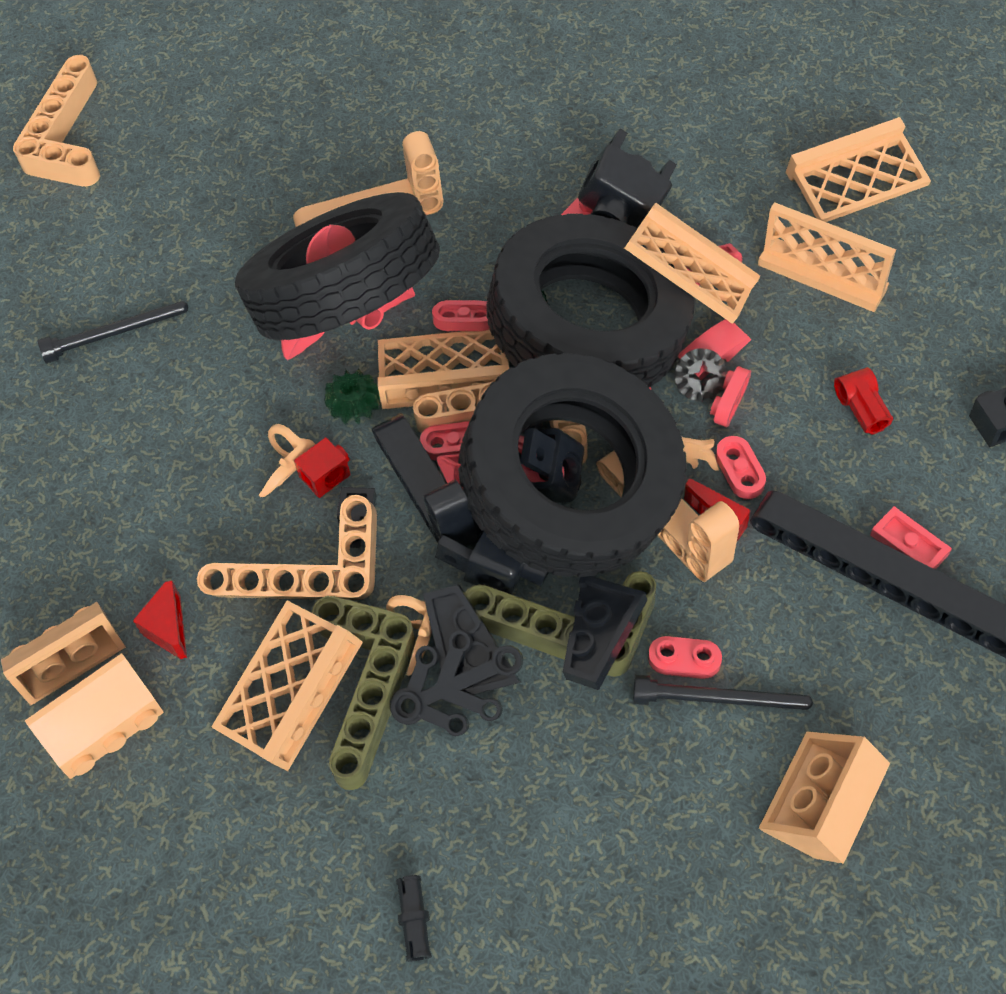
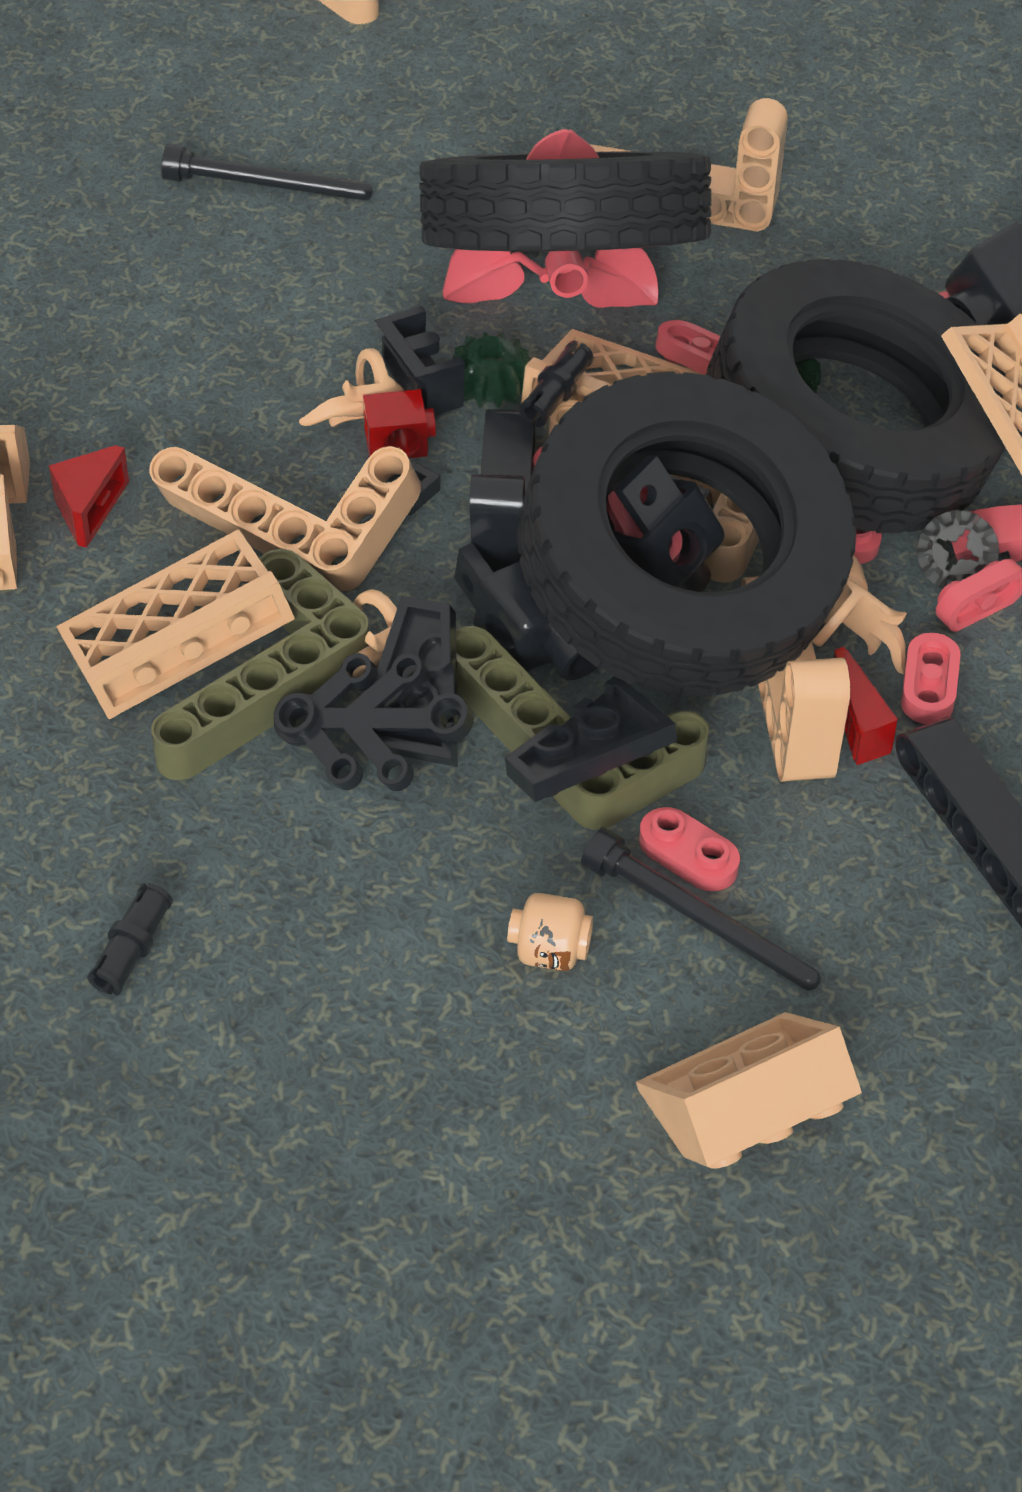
camera: 25 degrees right, 10 degrees down
(305, 418) = (408, 359): none -> black window
(408, 391) = (556, 383): none -> black pin
(651, 761) = (551, 932): none -> light nougat head

